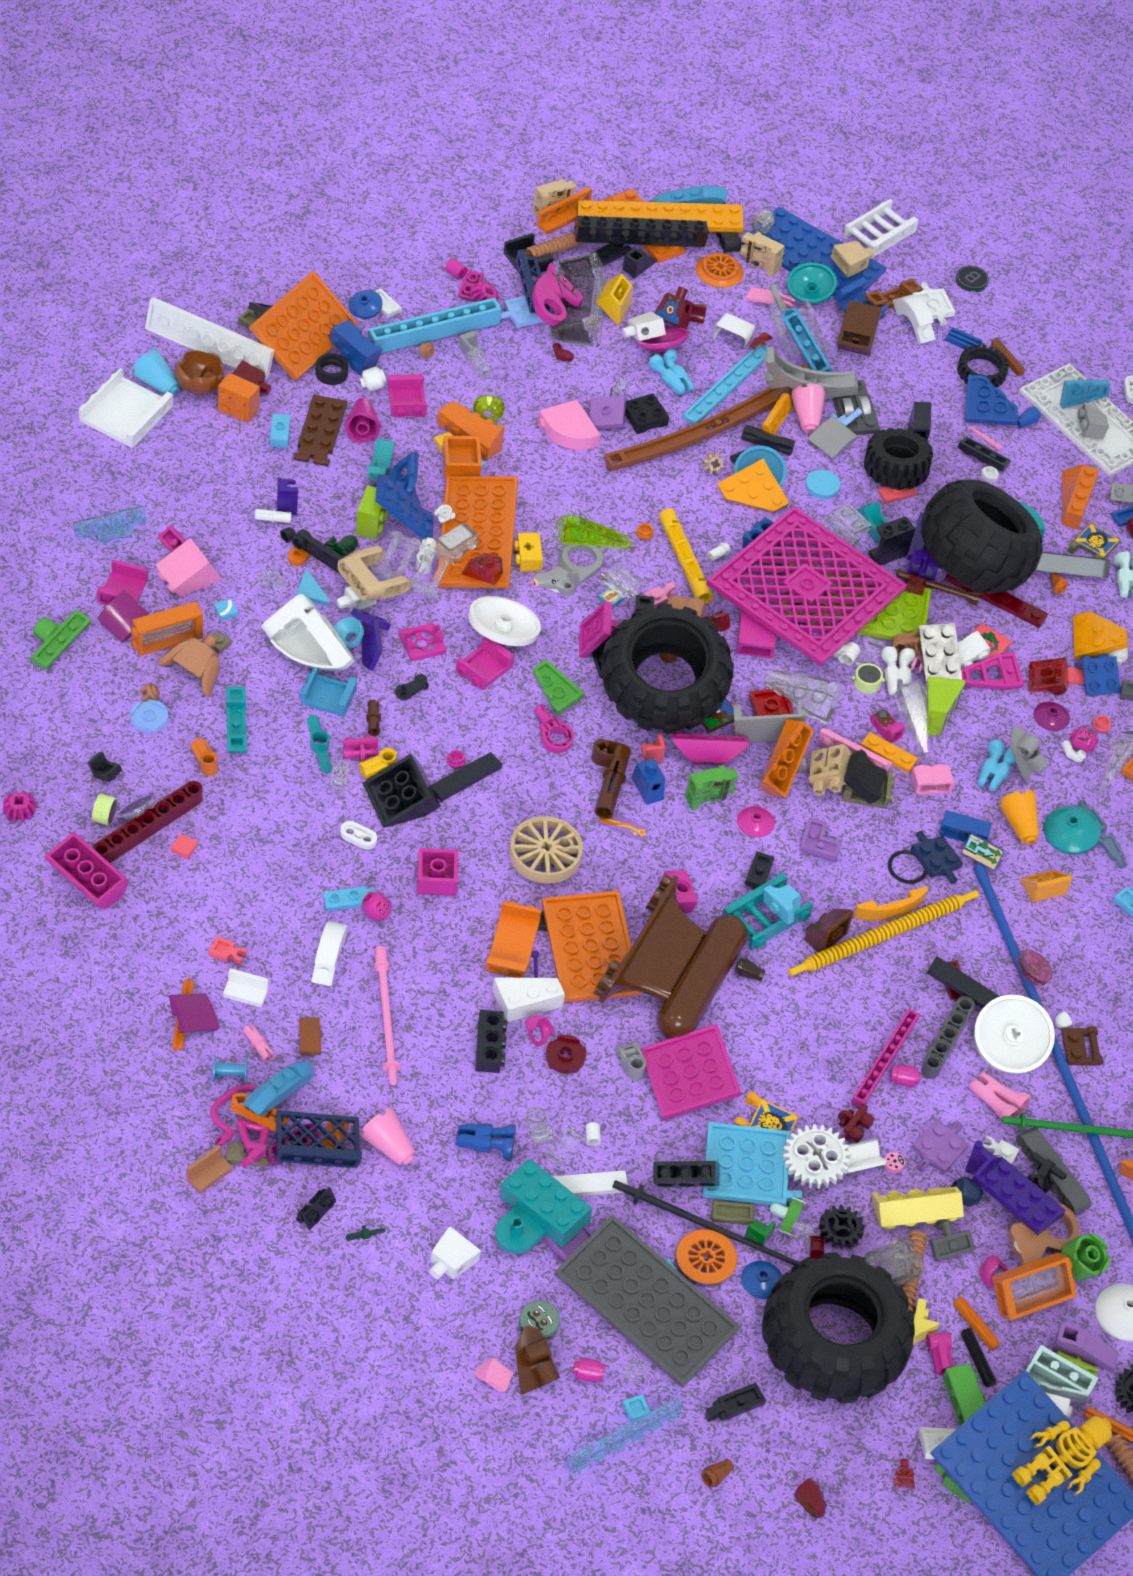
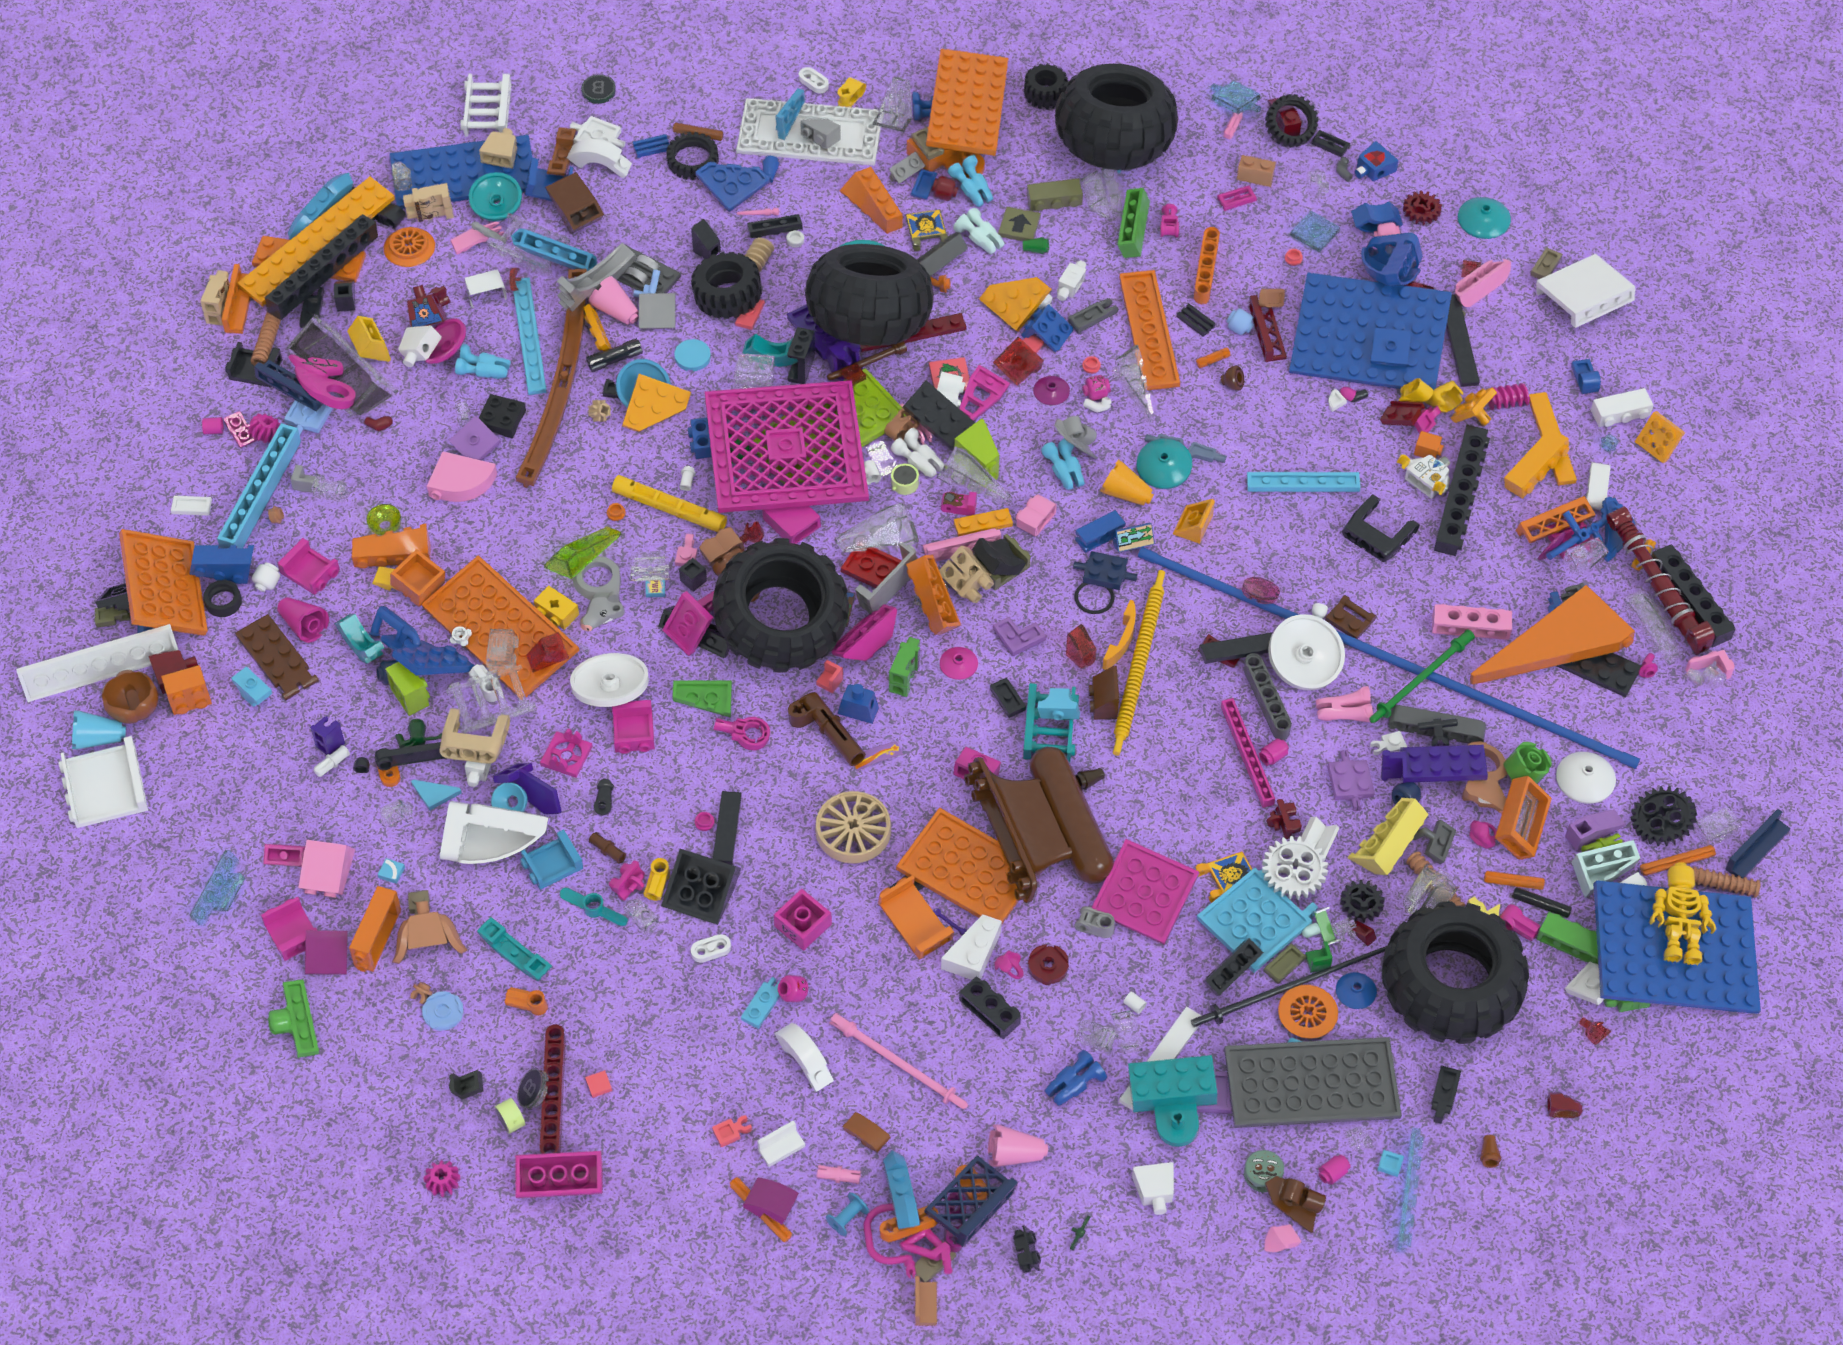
camera: 40 degrees left, 5 degrees up
(365, 304) = (184, 525): blue dish -> none
(850, 883) = (1080, 647): none -> clear red slope
(894, 1162) = (1338, 818): bright pink tile -> none
(947, 460) = (760, 251): none -> tan piece

